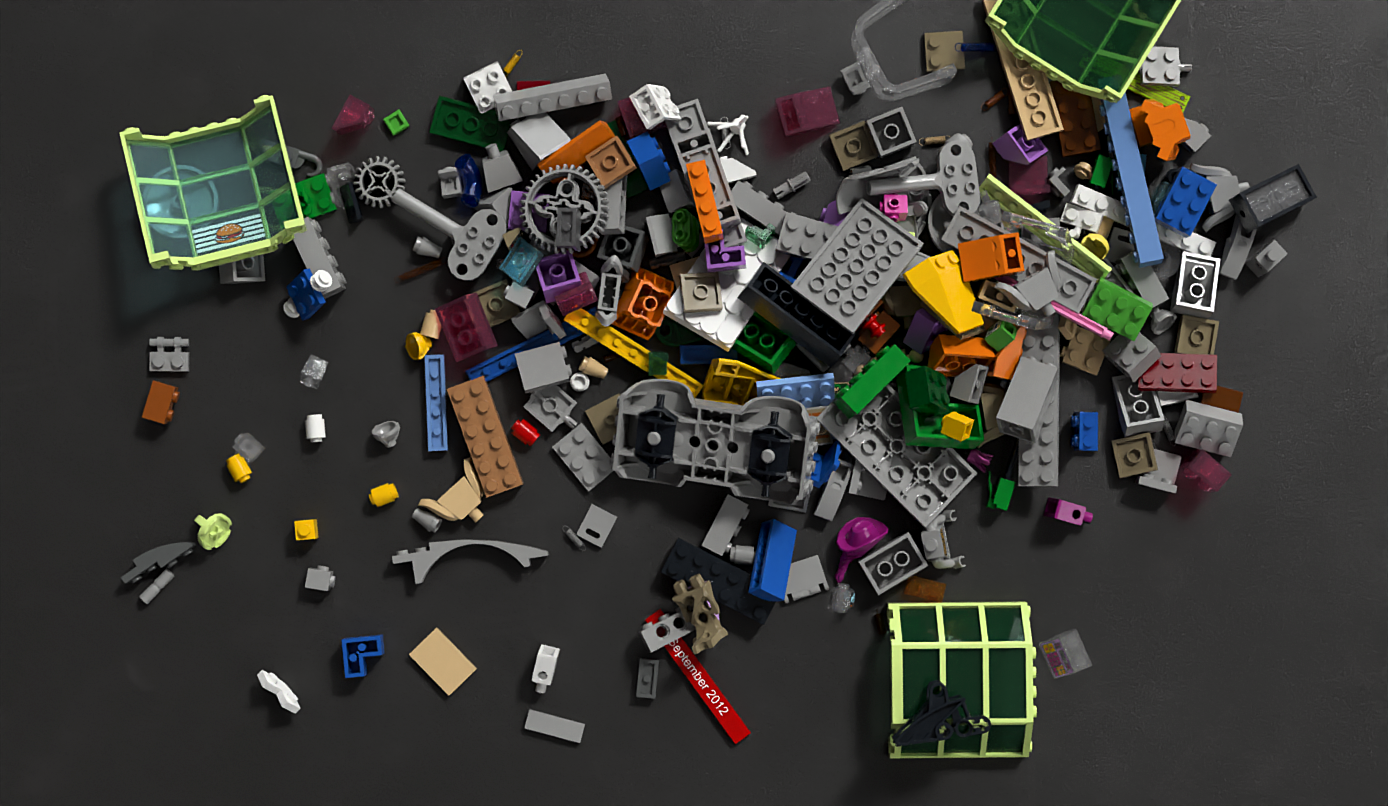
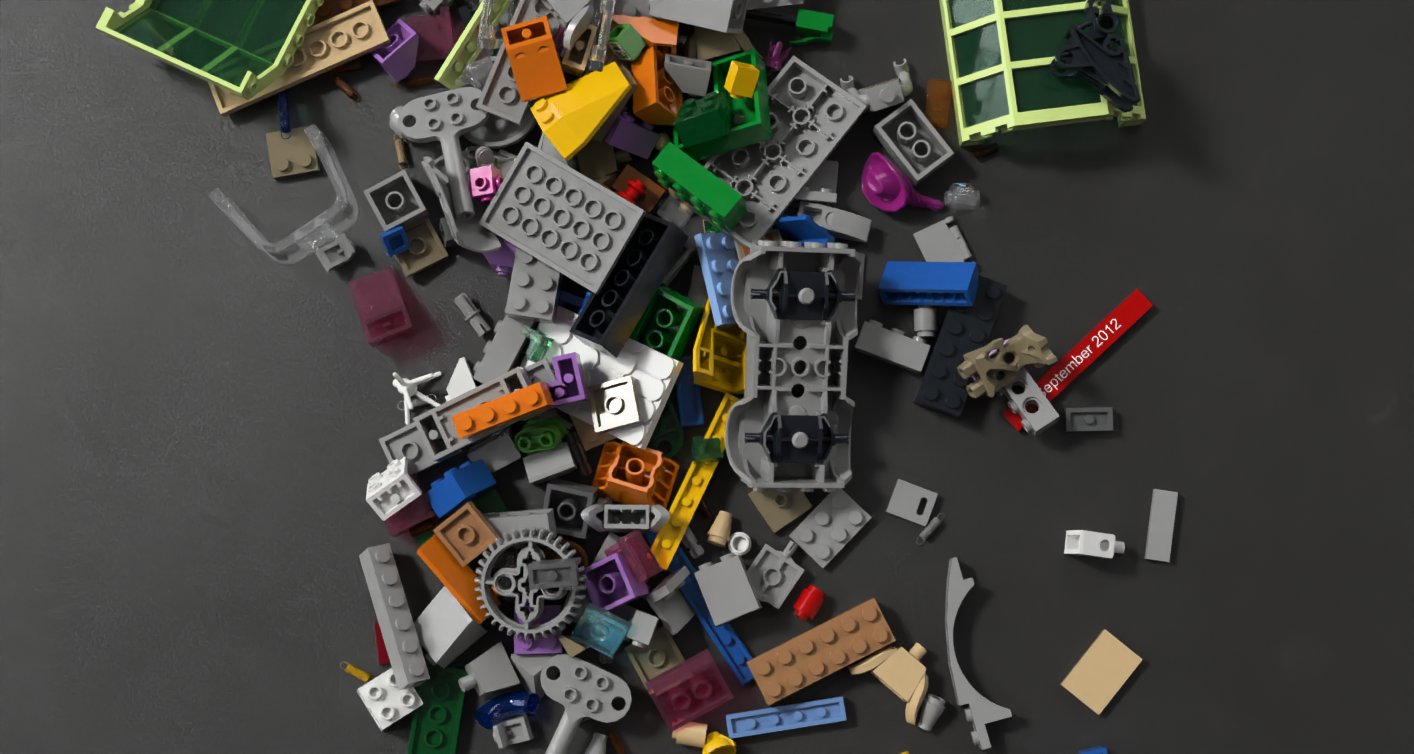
camera: 90 degrees left, 5 degrees down
(858, 128) = (395, 241): none -> blue plate

